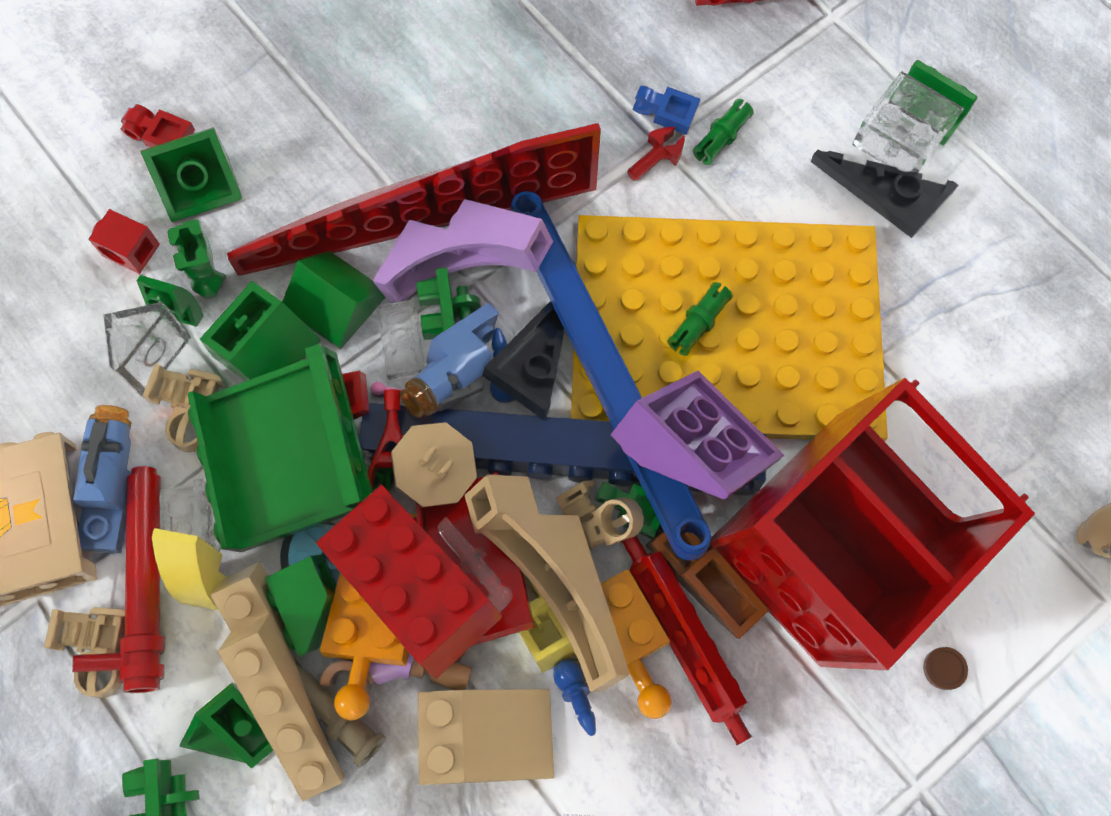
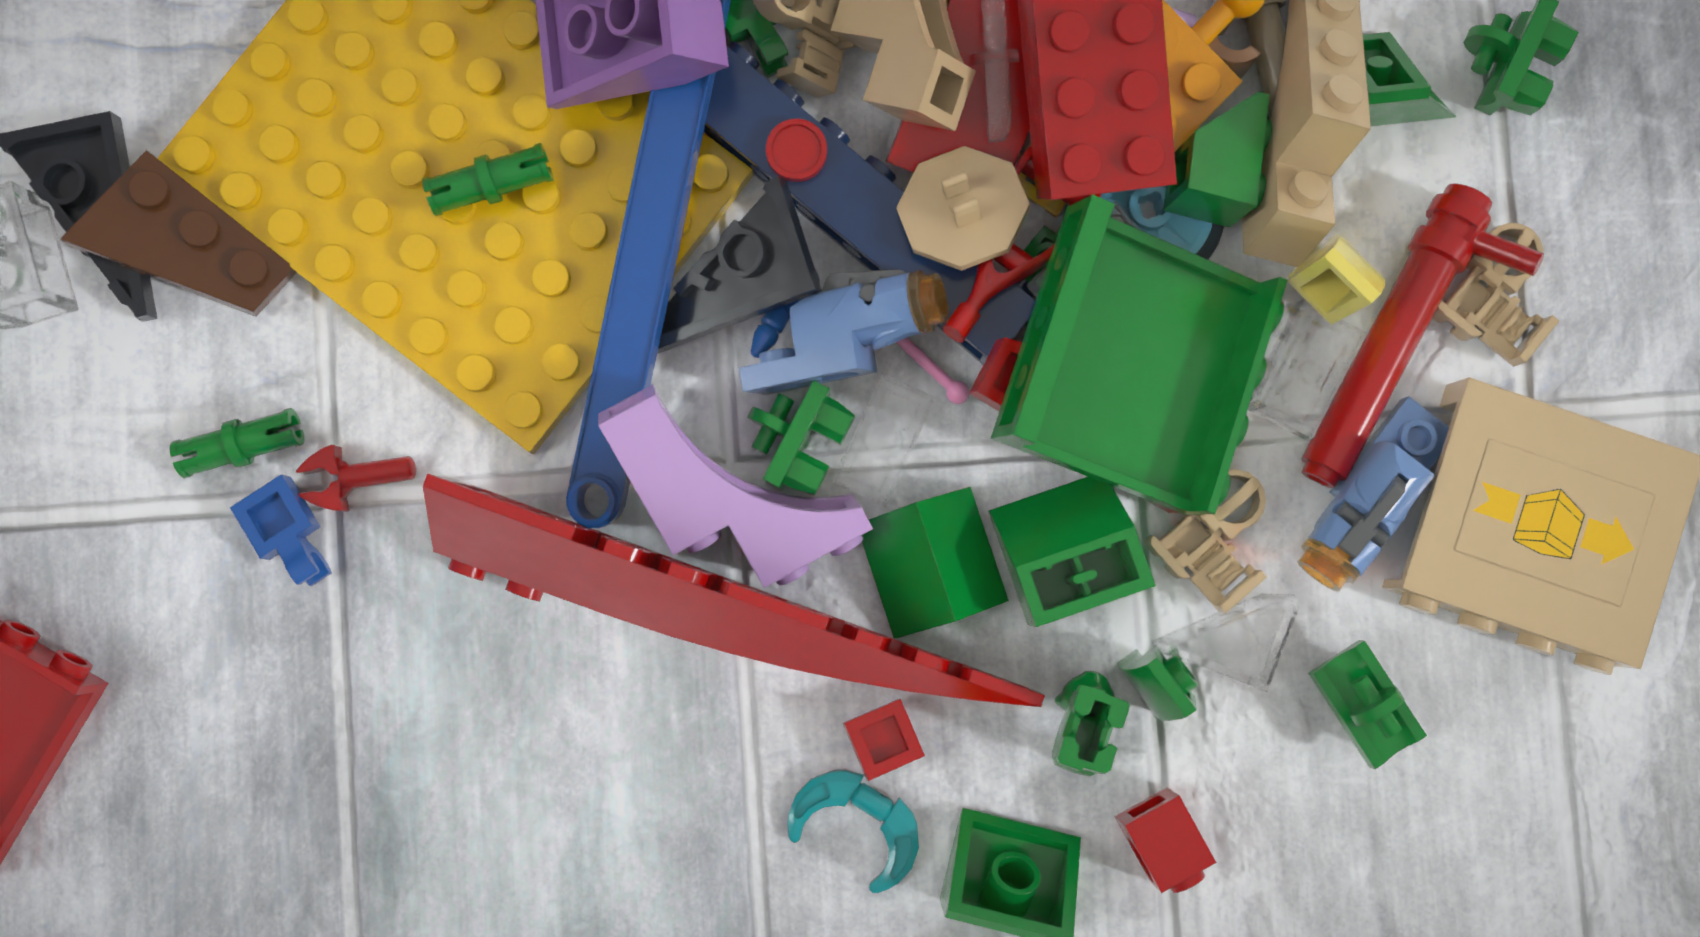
camera: 145 degrees left, 15 degrees up
(50, 368) = (1367, 704): none -> green hips
(302, 197) = (883, 739): none -> red plate
(310, 169) = (898, 824): none -> teal piece
(549, 438) = (796, 150): none -> red piece
(829, 196) = (175, 233): none -> reddish brown wing

